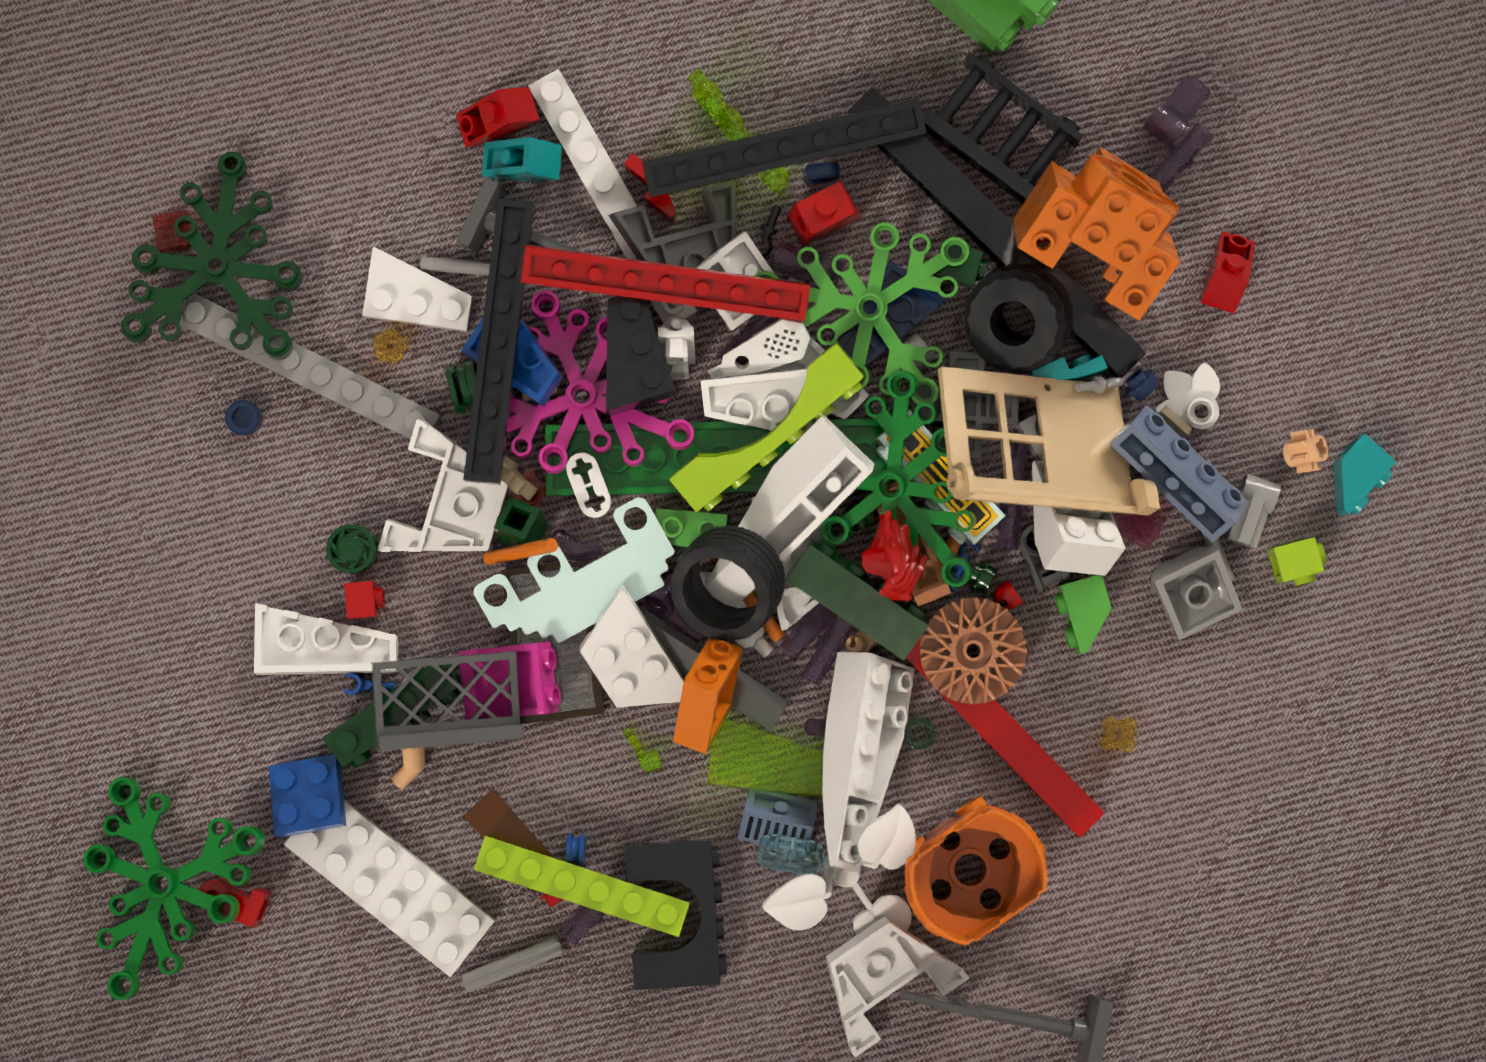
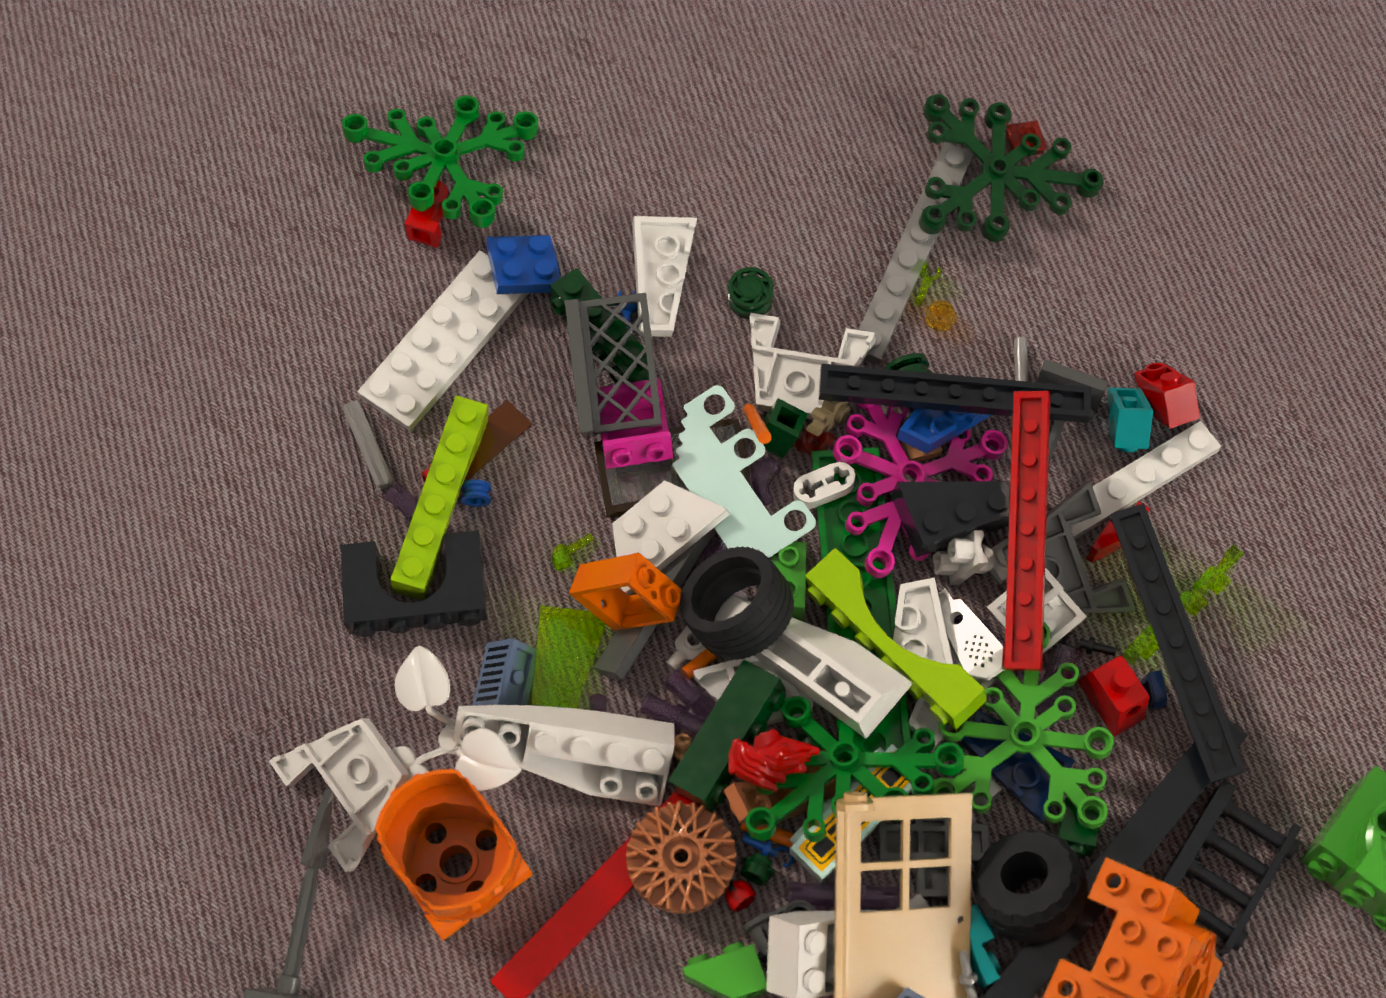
camera: 85 degrees right, 20 degrees down
(243, 418) = (863, 203): dark blue tile -> none
(344, 355) = (926, 283): none -> clear neon green hand
(363, 599) = (704, 302): red plate -> none
(412, 296) = (989, 331): white wing -> none
(412, 766) = (554, 353): light nougat arm -> none
(790, 854) = (471, 683): clear light blue beam -> none
(919, 722) = (606, 812): clear green bush -> none

